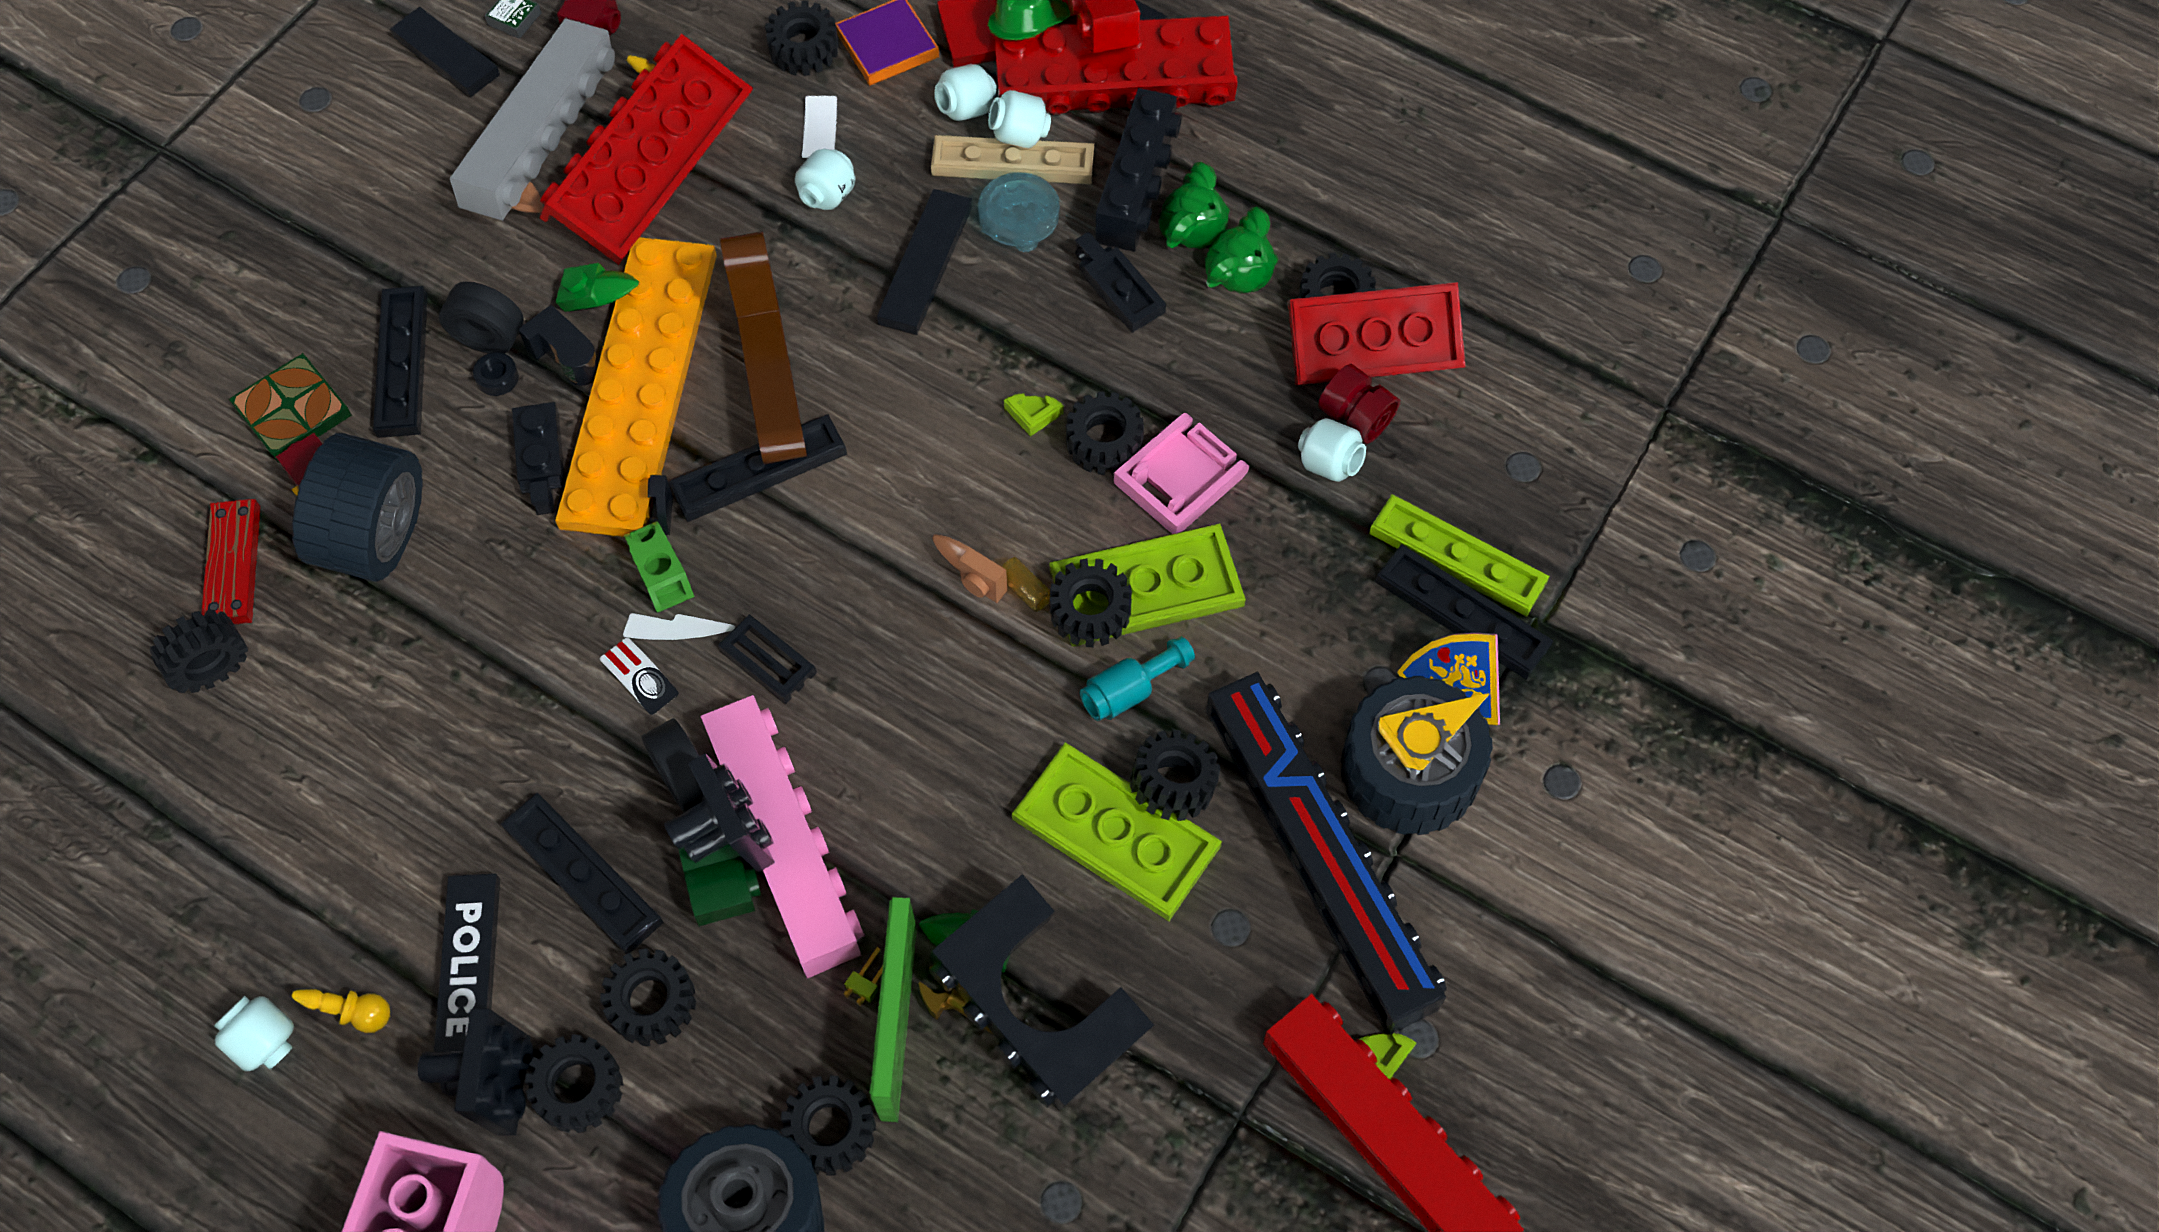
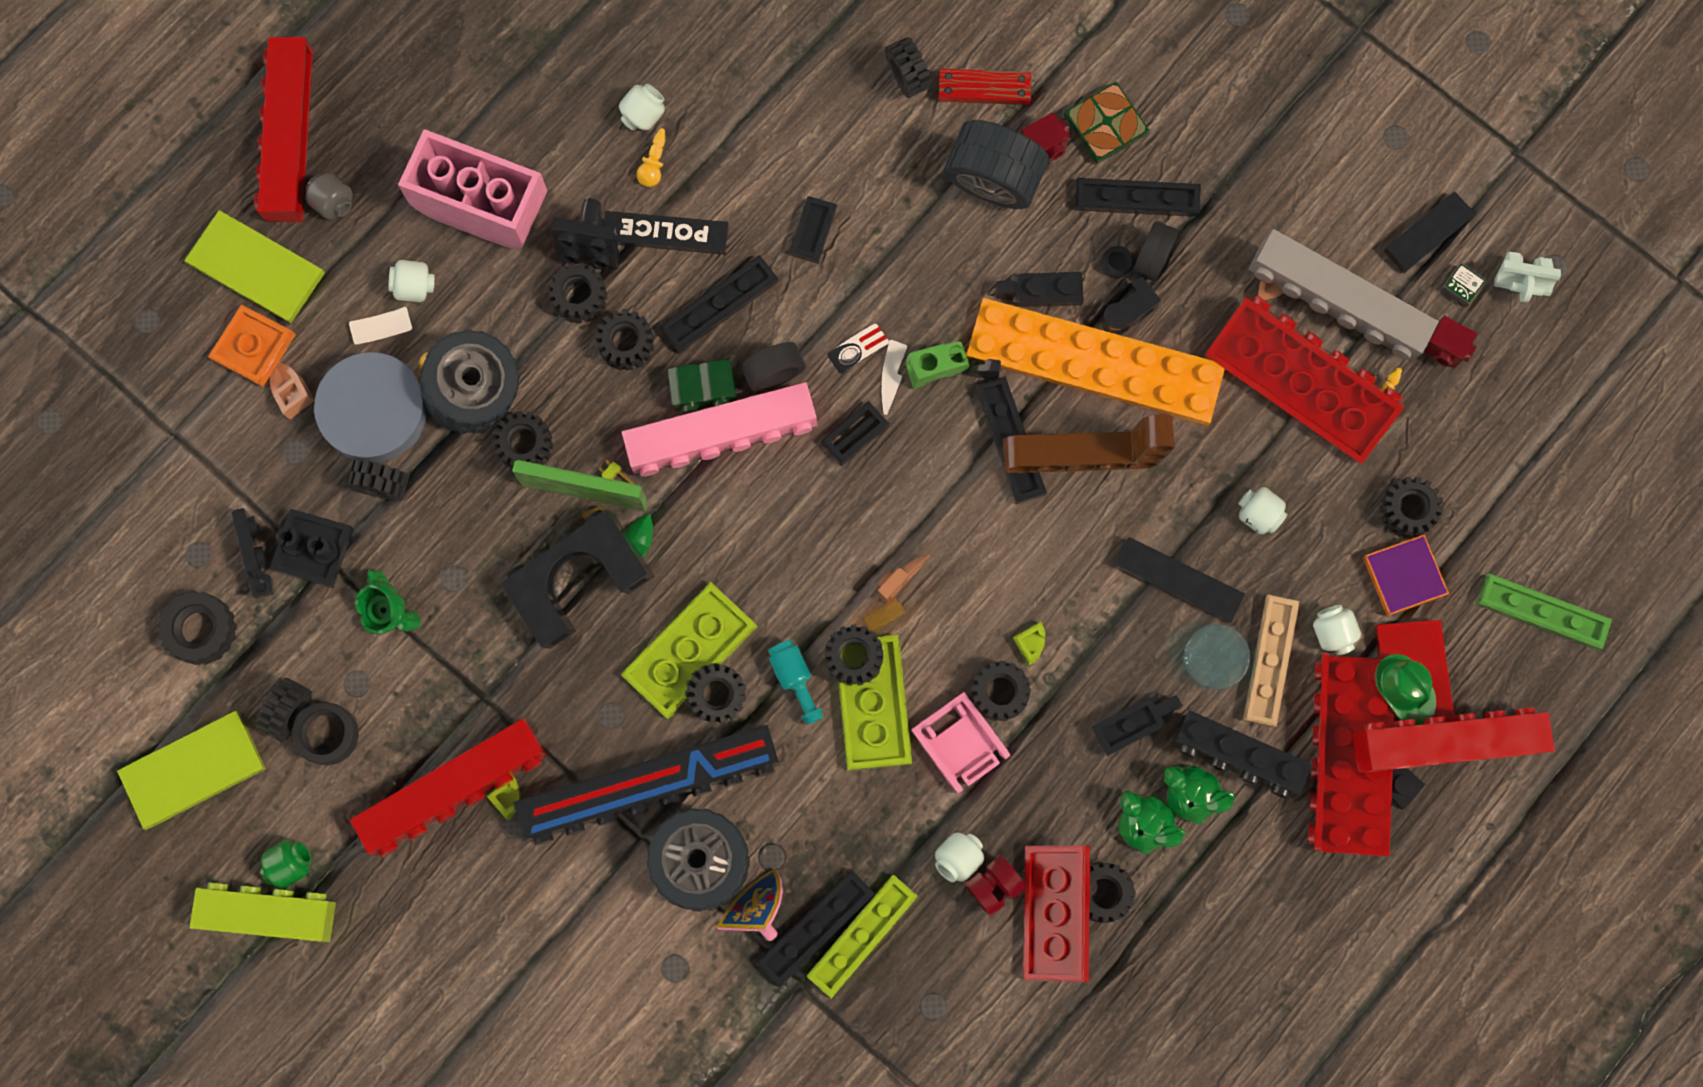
camera: 100 degrees right, 15 degrees up
(457, 759) = (813, 229): none -> black tile
(592, 287) = (1181, 333): green plate -> none
(721, 818) = (716, 387): black plate -> none
(819, 124) = (1322, 514): white sticker -> none
(1019, 119) = (1297, 666): light aqua head -> none
(1422, 735) = (697, 859): yellow sticker -> none

